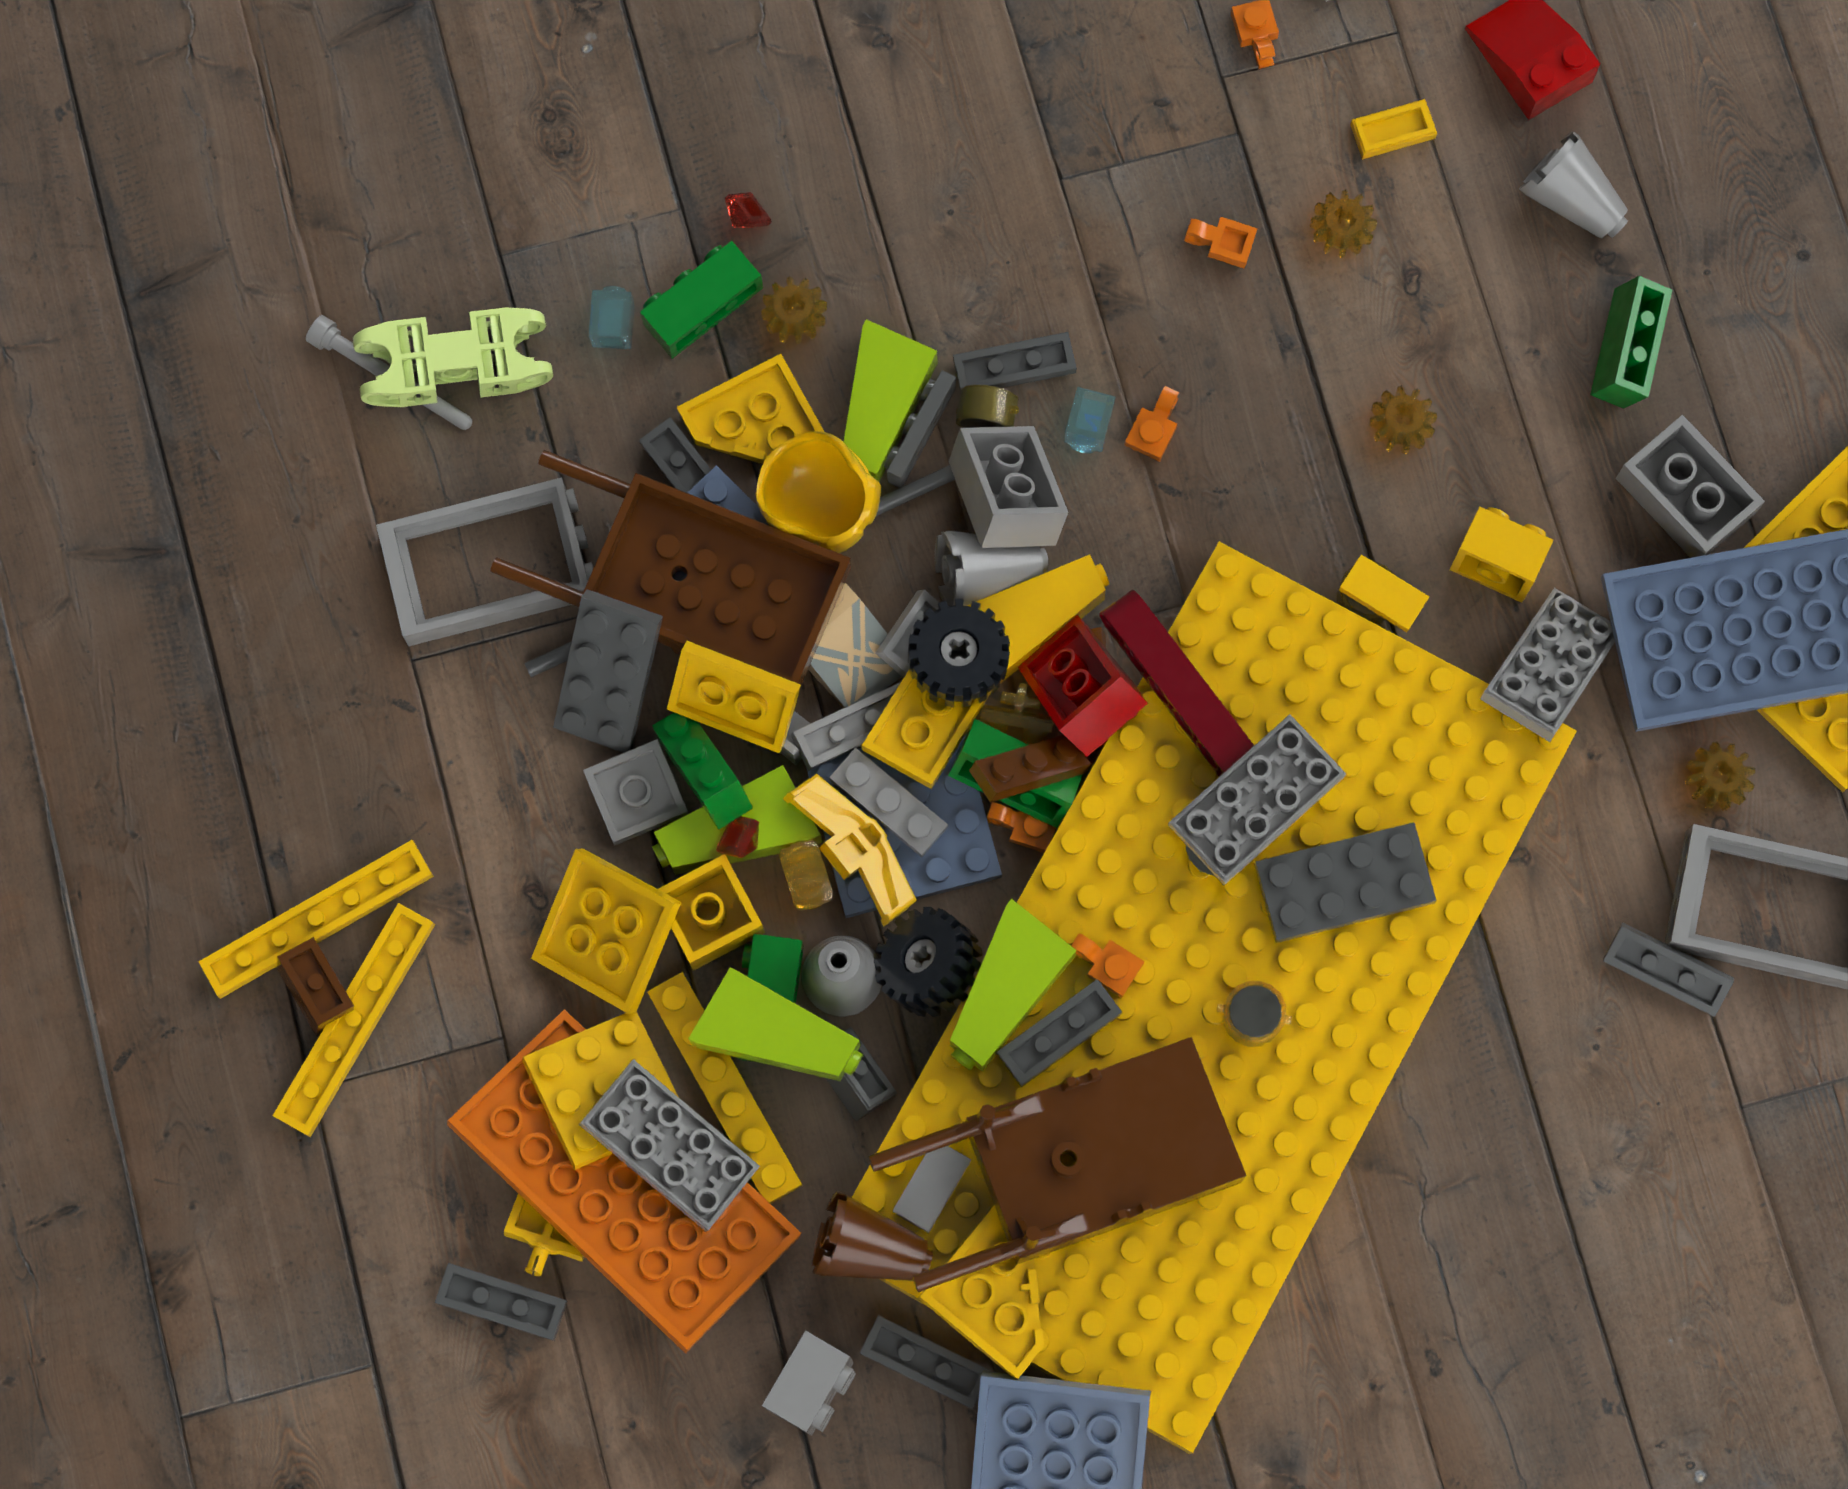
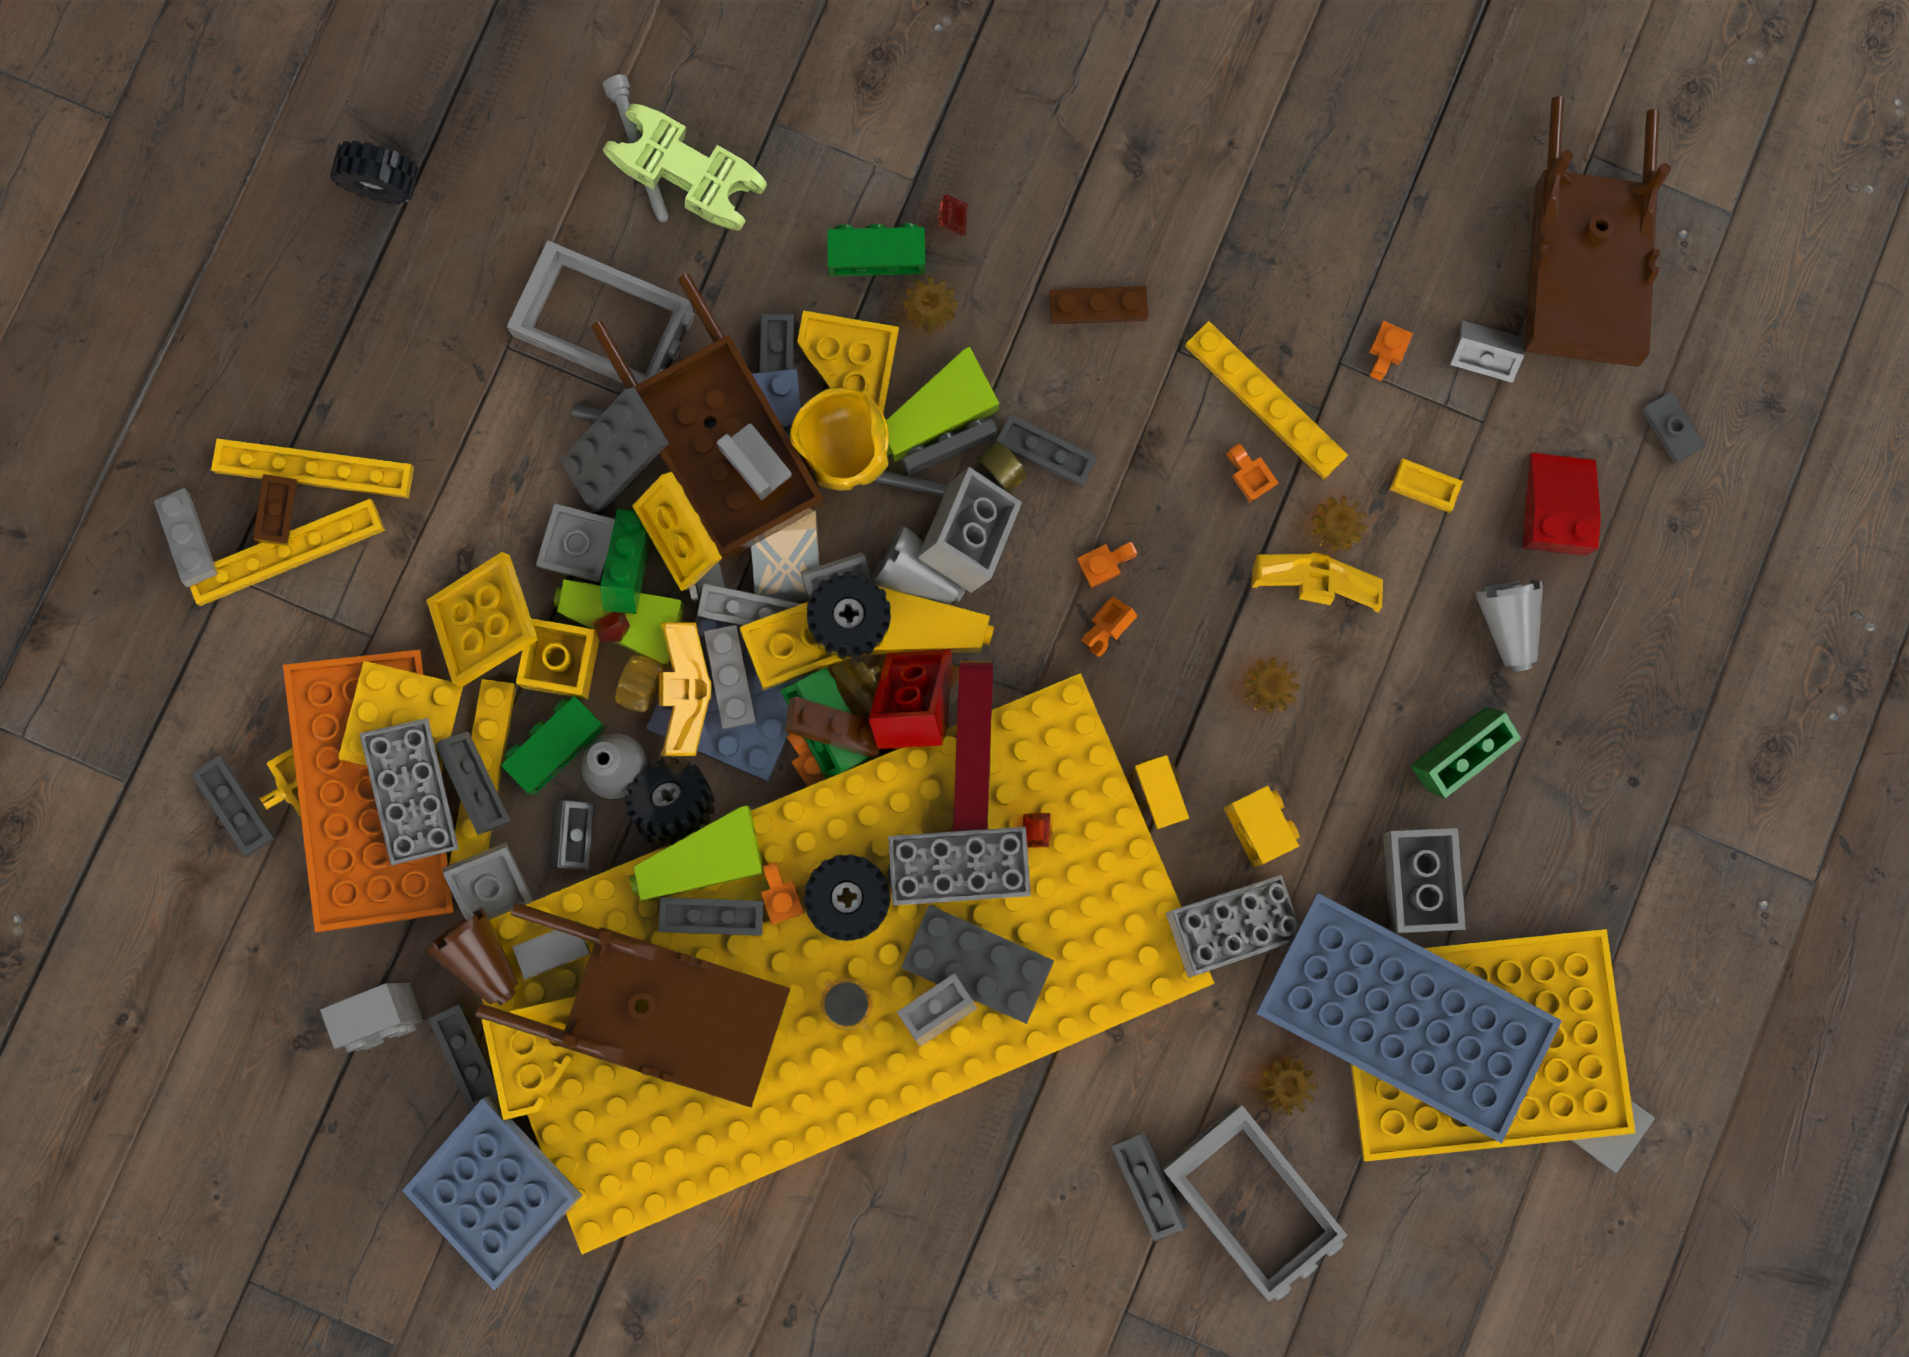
camera: 30 degrees right, 5 degrees up
(153, 586) = (374, 172): none -> black bush
(244, 1080) = (185, 537): none -> light grey plate
(611, 318) = (808, 219): clear light blue brick -> none
(723, 1091) = (472, 782): none -> dark grey plate
(757, 572) = (754, 460): none -> light grey panel
(771, 1030) = (530, 765): lime slope -> none
(810, 1175) = (487, 882): none -> light grey plate
(952, 192) = (1098, 305): none -> reddish brown plate
(1089, 420) = (1063, 526): clear light blue brick -> none
(1174, 941) = (866, 911): none -> black bush
(1182, 162) = (1266, 400): none -> yellow plate
(1203, 476) = (1109, 621): none -> orange plate
(1301, 709) = (1038, 829): none -> clear red slope
(1344, 950) = (937, 1010): none -> light grey panel
(1365, 288) = (1318, 578): none -> yellow plate

